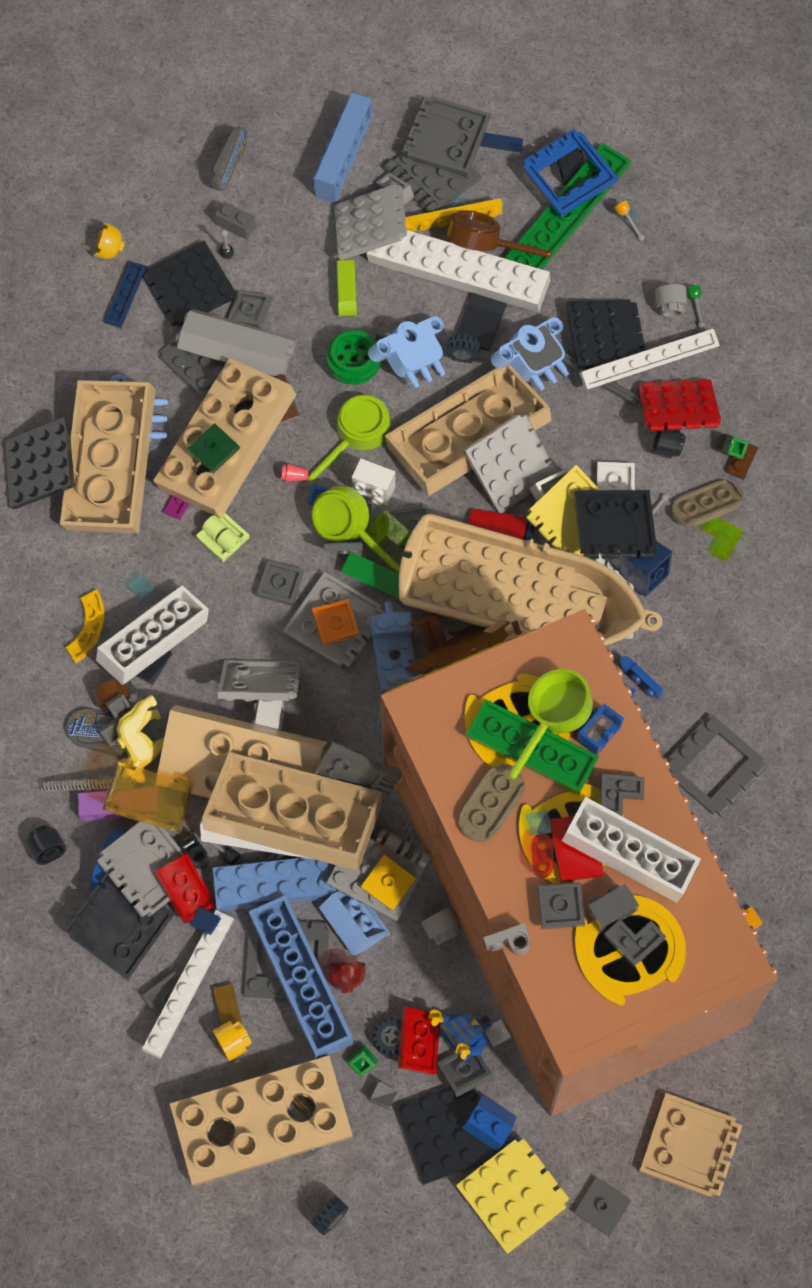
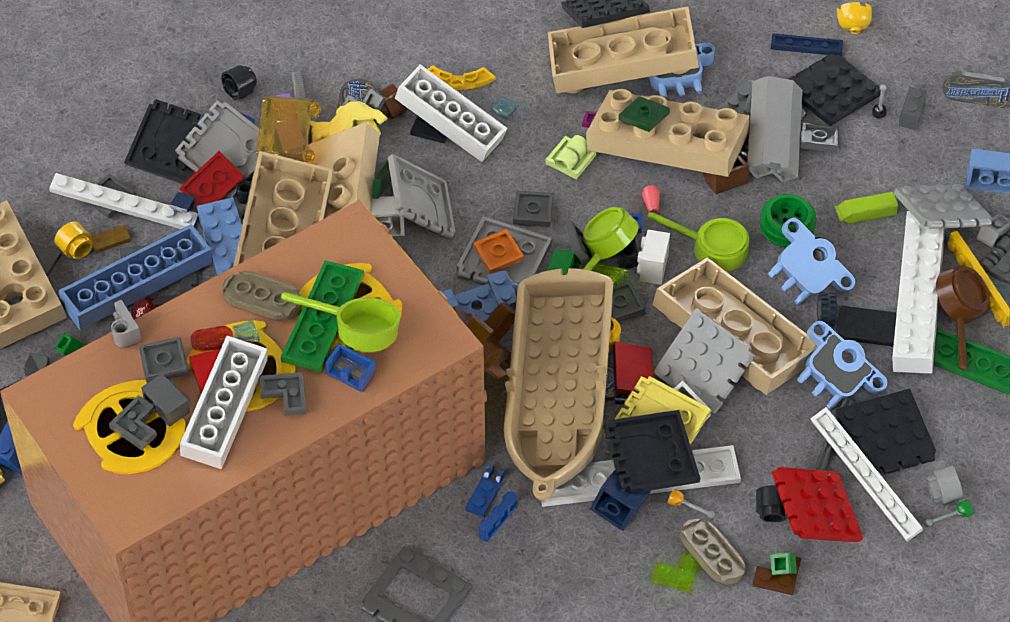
camera: 80 degrees right, 15 degrees down
(240, 714) = (381, 181): none -> dark green tile

